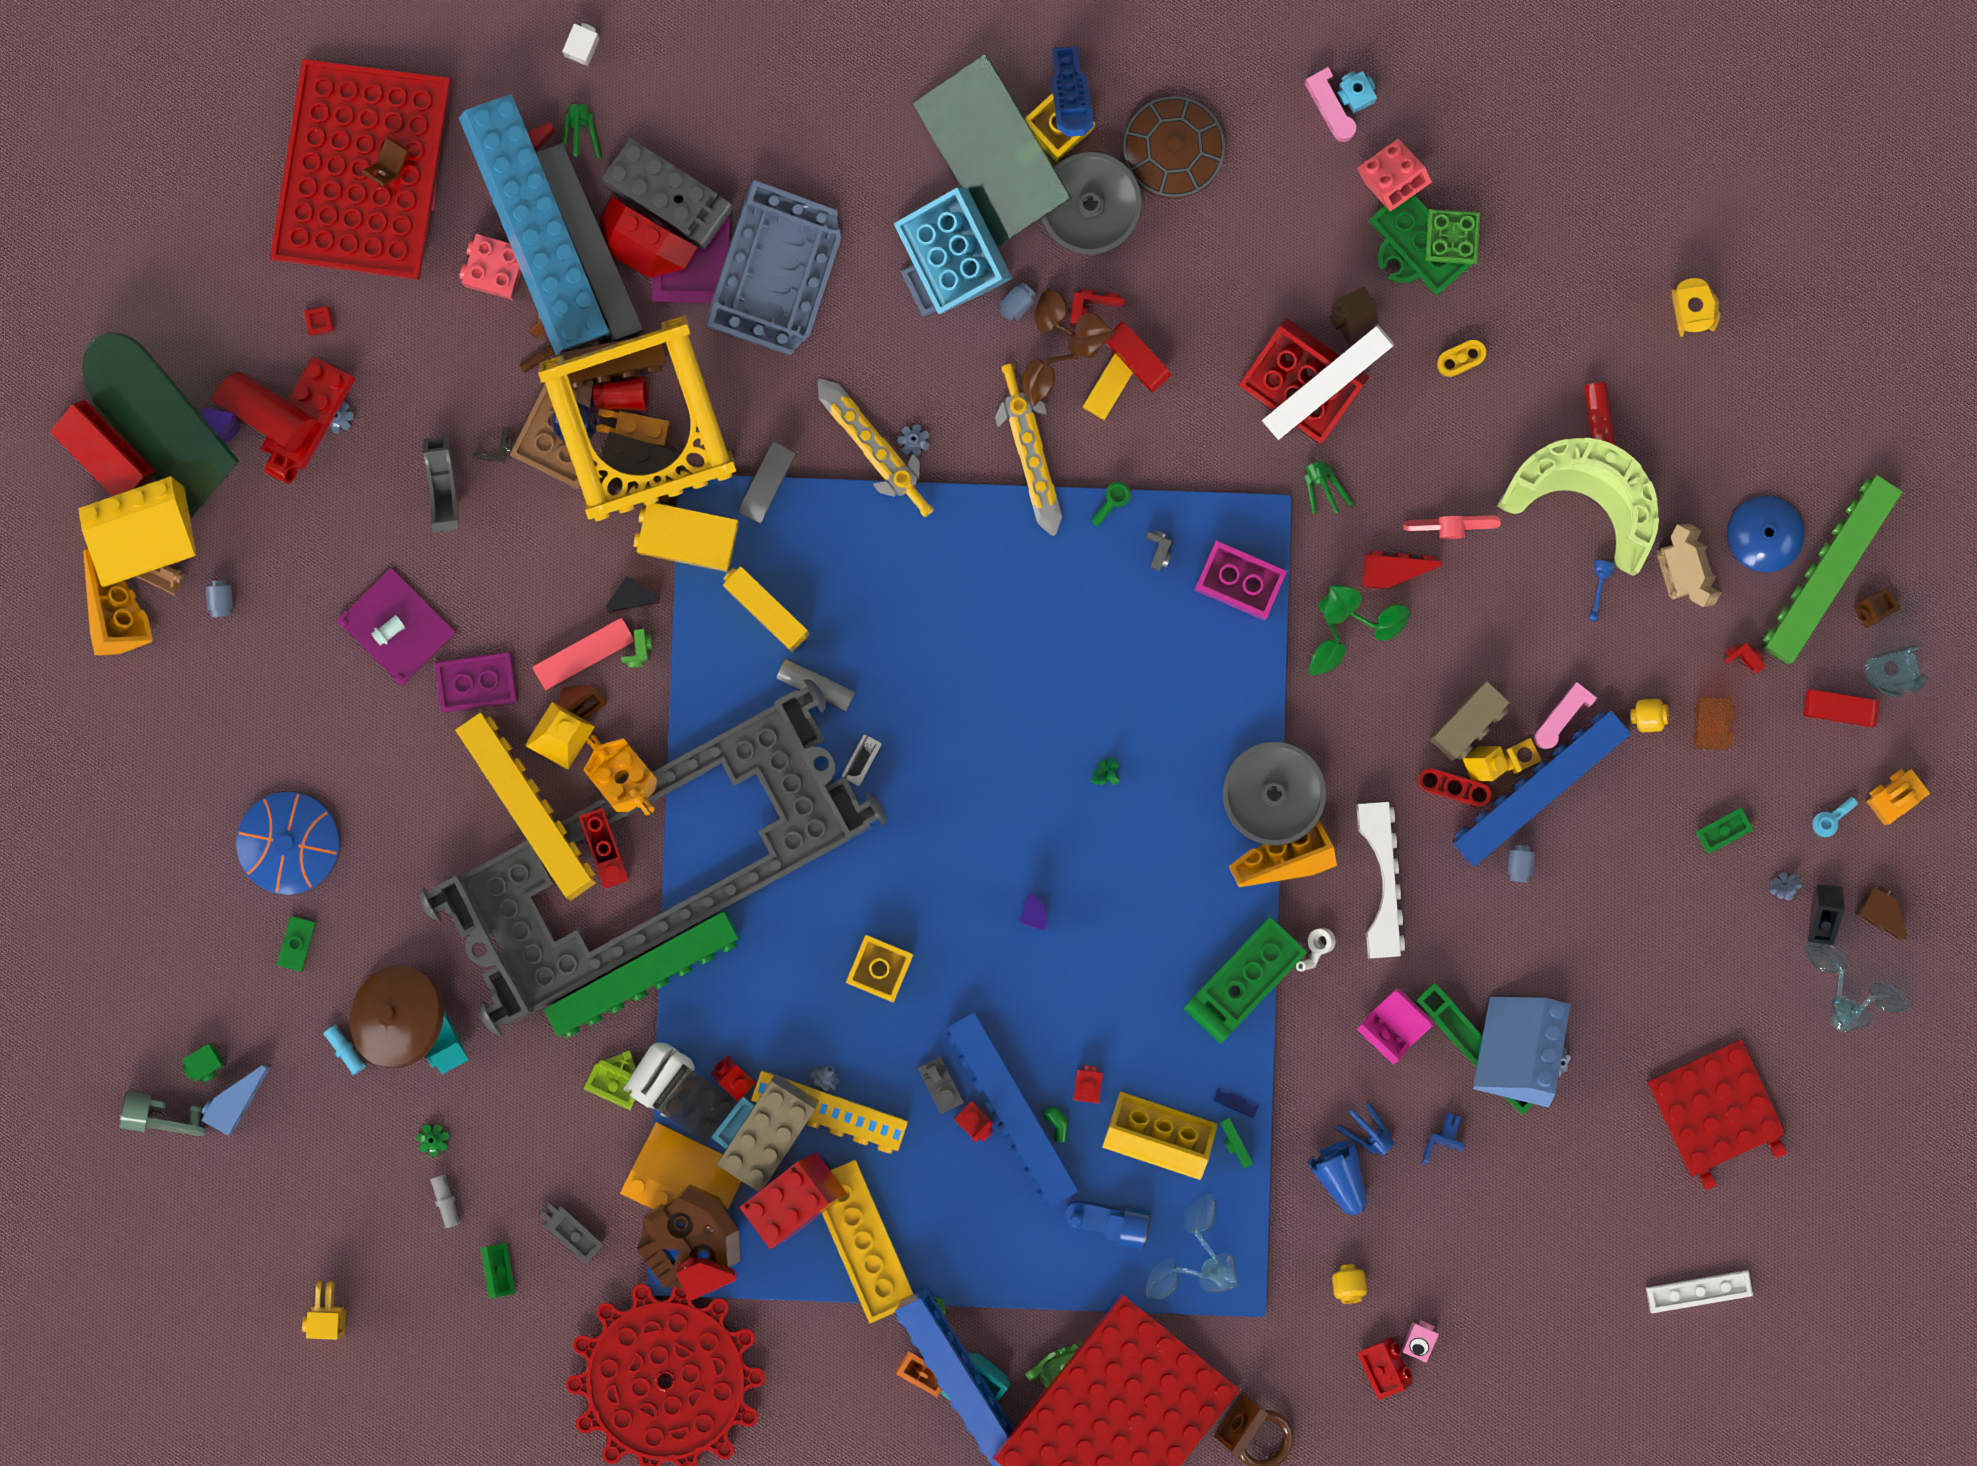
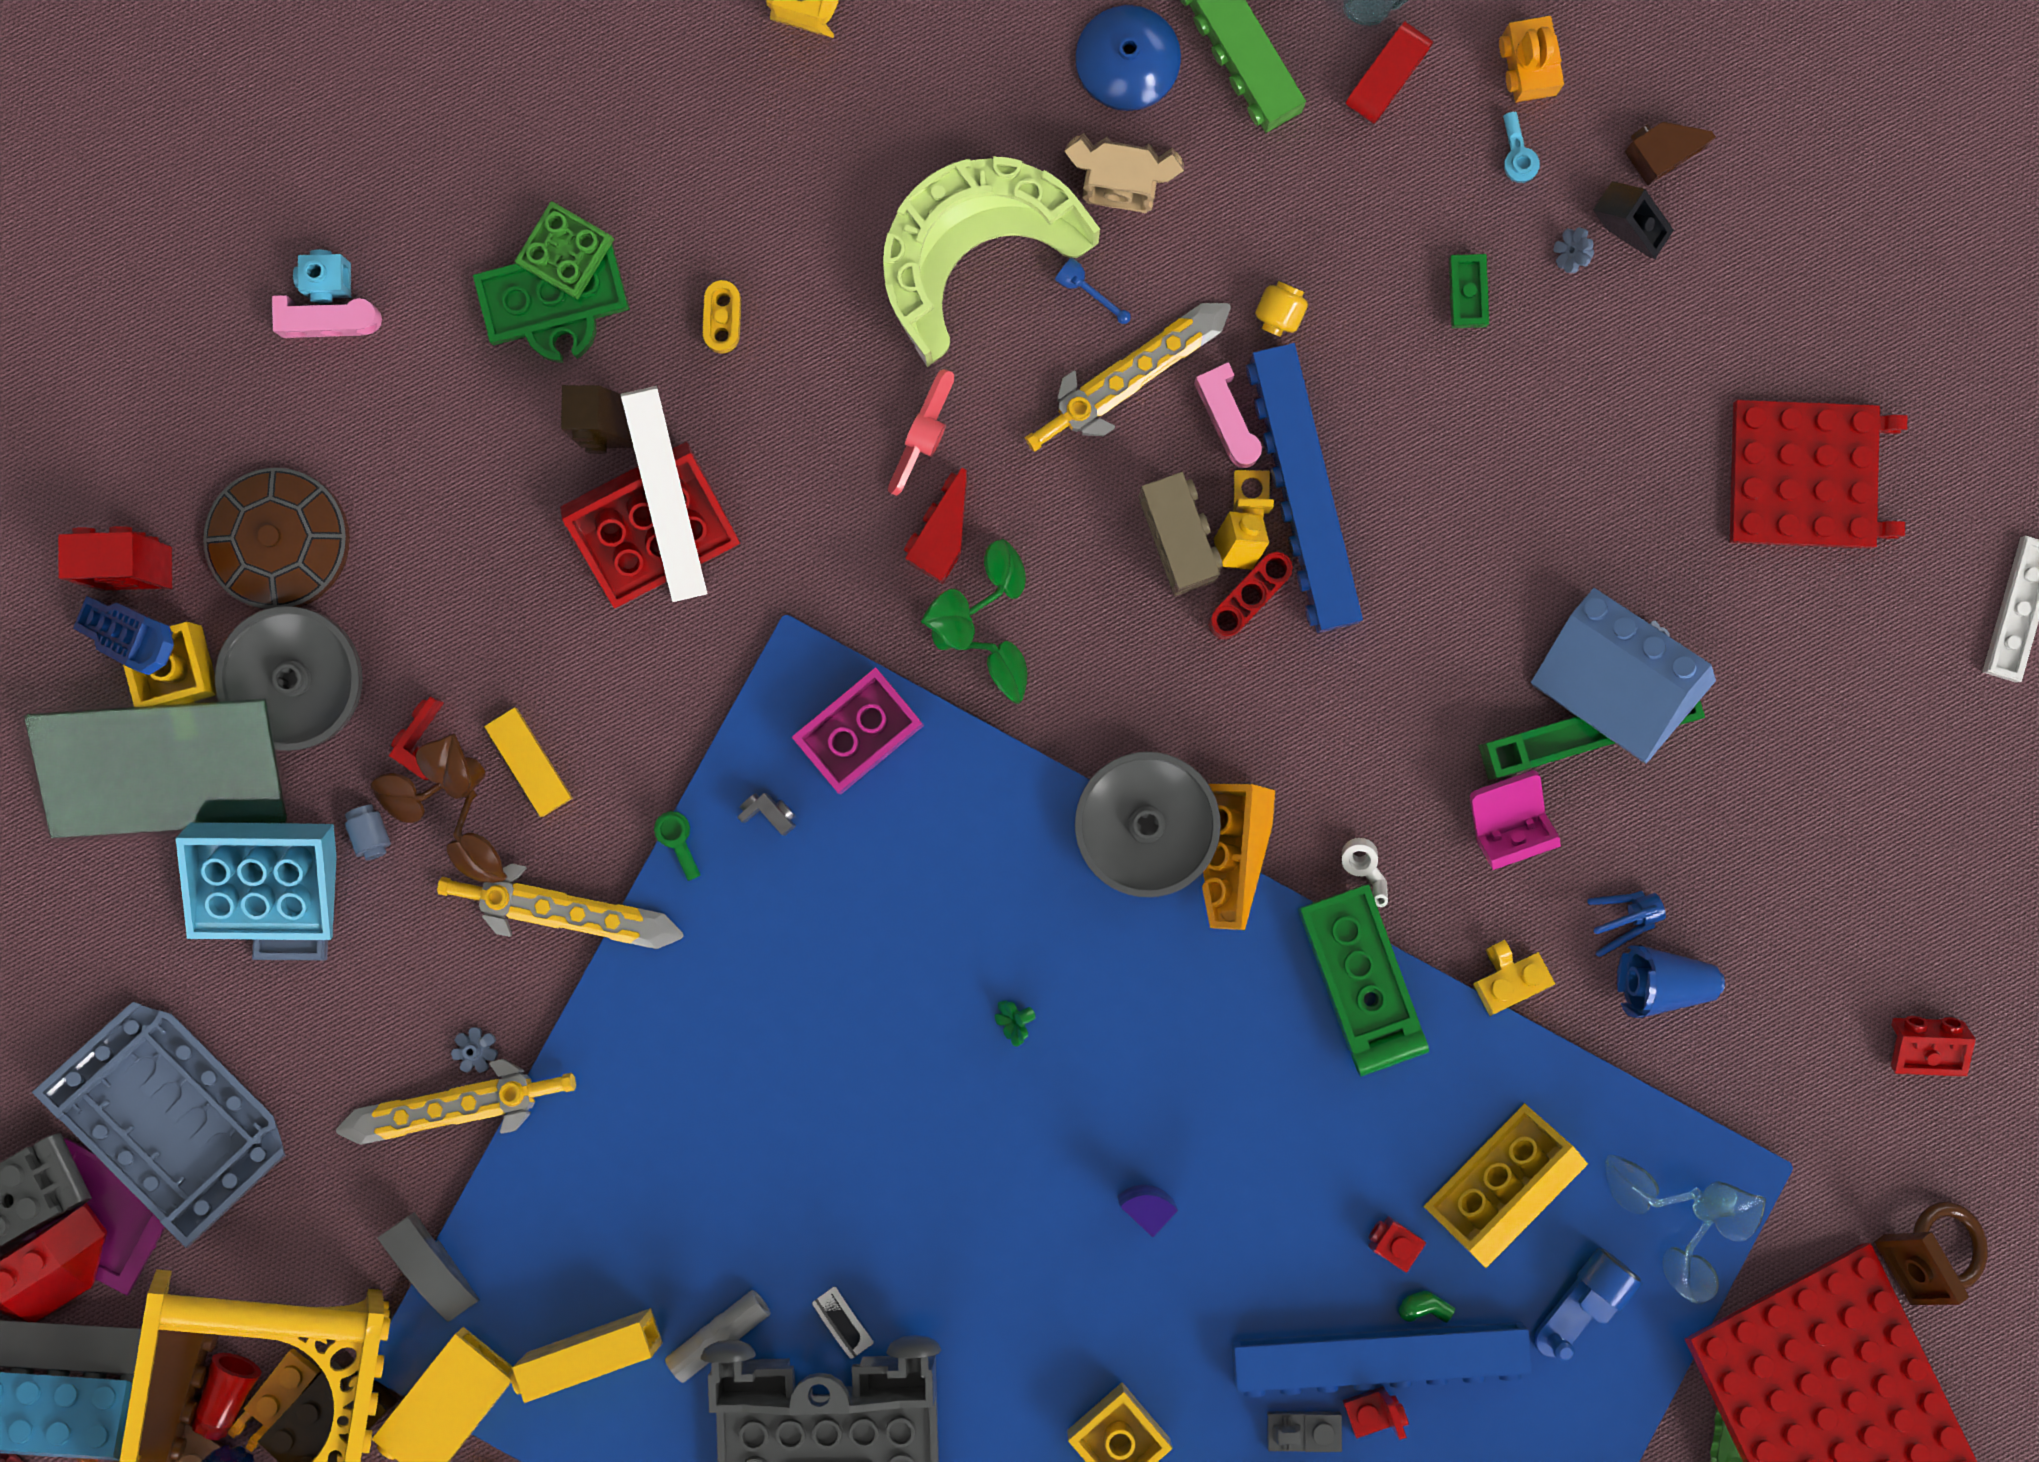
camera: 65 degrees left, 0 degrees up
(1110, 59) = (114, 559): none -> red brick
(1138, 357) = (511, 717): red beam -> none
(1234, 1143) = (1561, 1096): green plate -> none
(1235, 1103) = (1510, 1067): clear blue piece -> none
(1291, 1077) = (1511, 981): none -> yellow plate
(1320, 475) = (775, 566): green plant -> none
(1349, 1284) = (1806, 1039): yellow head -> none
(1375, 825) = (1387, 774): white arch -> none
(1394, 174) = (449, 281): coral brick -> none
(1420, 1340) = (1919, 987): bright pink brick -> none
(1446, 1138) = (1680, 824): blue bracket -> none
(1521, 864) = (1386, 561): sand blue brick -> none
(1555, 637) = (1127, 376): none -> sword
(1599, 412) = (873, 181): red axle -> none
(1713, 724) = (1330, 237): clear orange brick -> none
(1752, 658) = (1271, 151): red bracket -> none
(1847, 1013) = (1788, 243): clear light blue plant -> none

